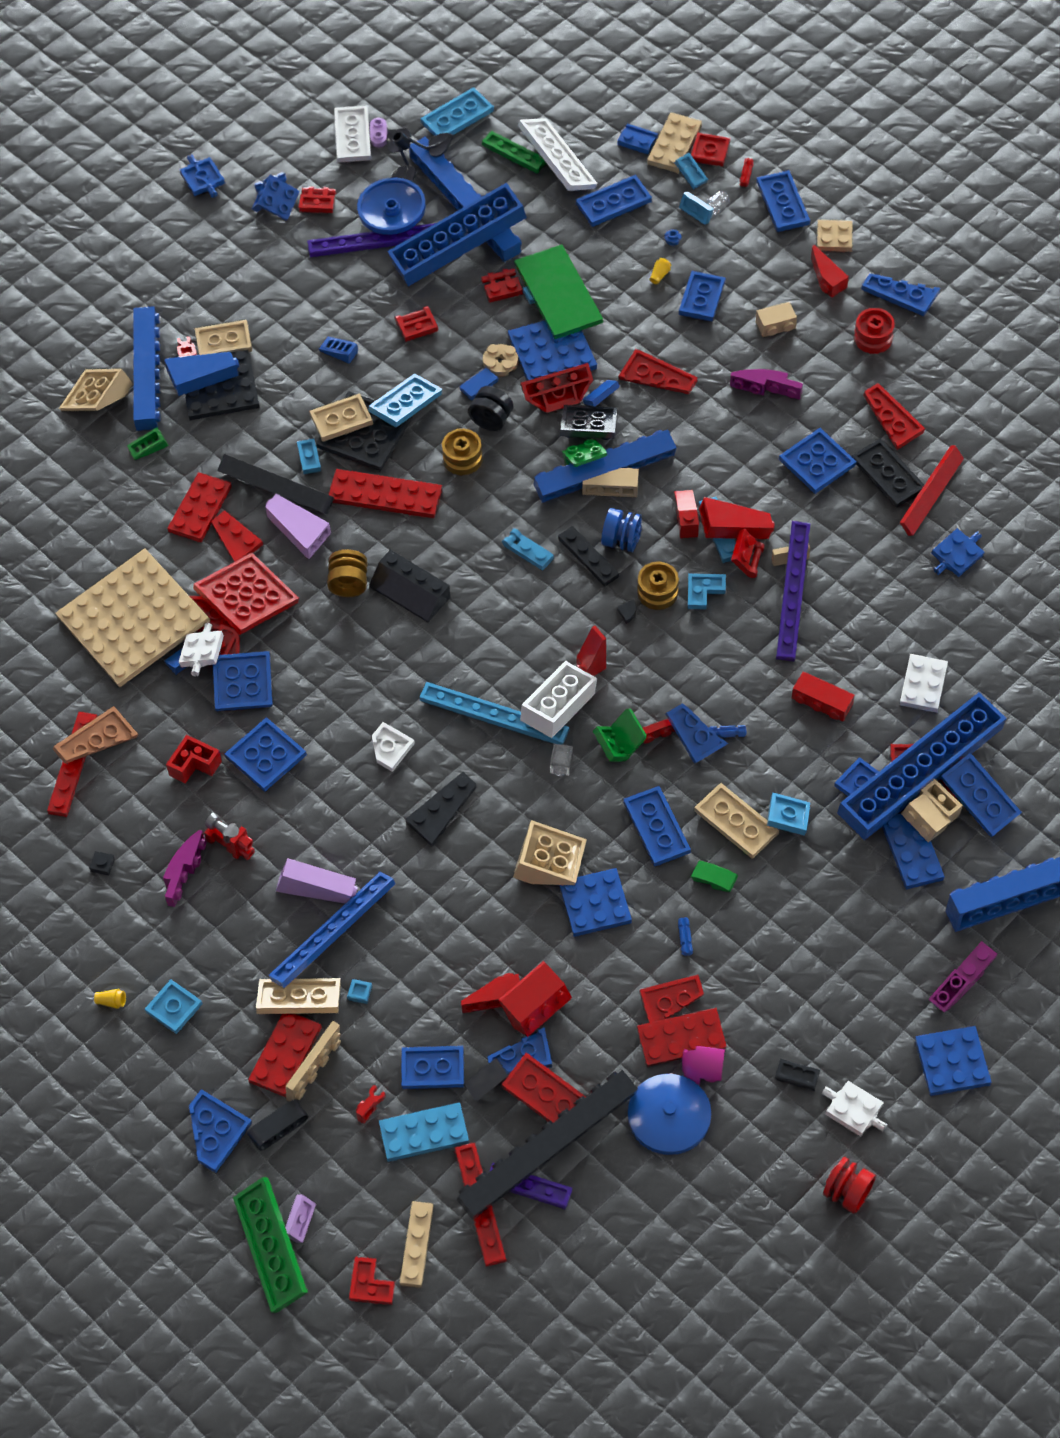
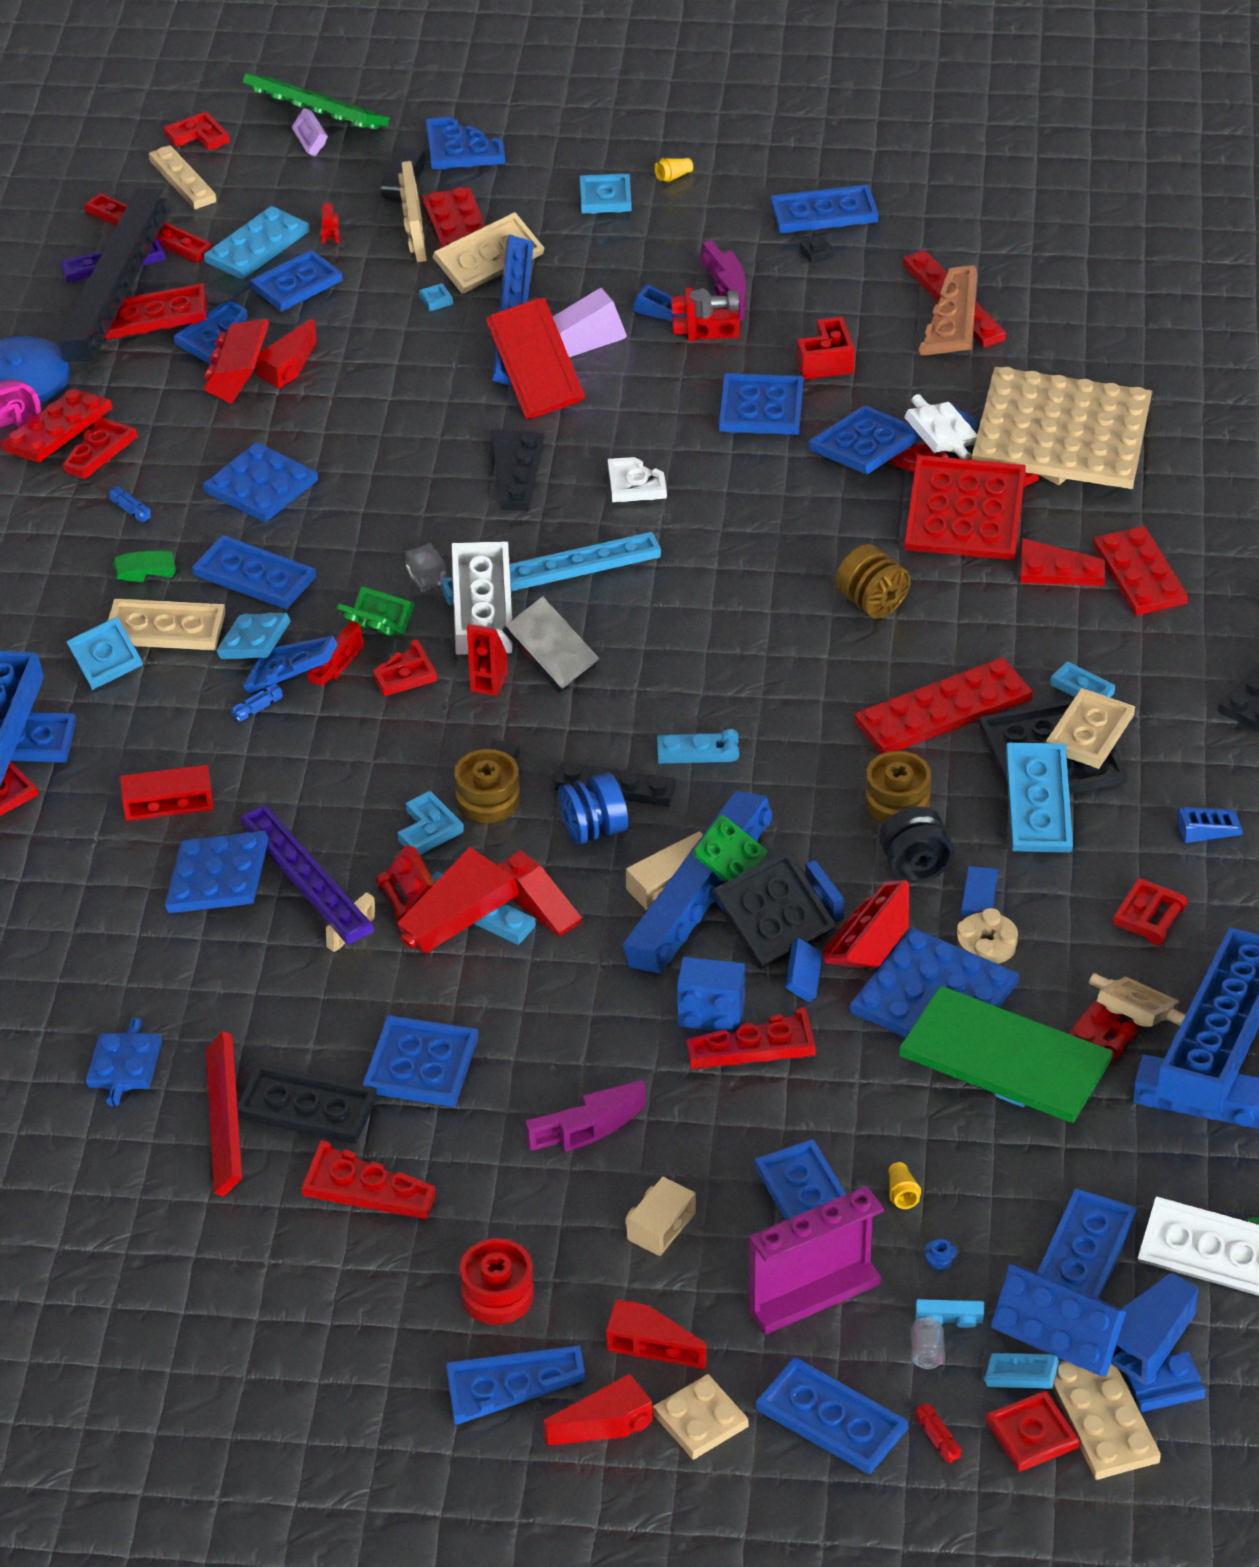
camera: 140 degrees right, 15 degrees down
(63, 890) = (824, 208): none -> blue plate
(244, 890) = (654, 304): none -> blue slope
(275, 484) = (1091, 632): black beam -> none
(298, 525) = (1002, 608): lavender slope -> none
(362, 868) = (535, 358): none -> red piece
(410, 586) = (792, 631): black slope -> none
(474, 279) = (1136, 1001): none -> tan plate
(548, 649) = (550, 644): none -> tile
(549, 856) = (345, 479): tan slope -> none
(552, 424) = (825, 890): none -> blue plate
(626, 148) = (1154, 1326): none -> blue slope
(632, 696) = (405, 671): none -> red wing
(661, 395) = (711, 994): none -> blue brick
(664, 164) = (1058, 1319): none -> blue plate
(695, 774) = (253, 636): none -> dark azure plate
(741, 235) = (812, 1260): none -> magenta panel
(834, 627) = (217, 872): none -> blue plate
(874, 253) = (602, 1415): none -> red slope
(923, 683) = (50, 886): white plate -> none

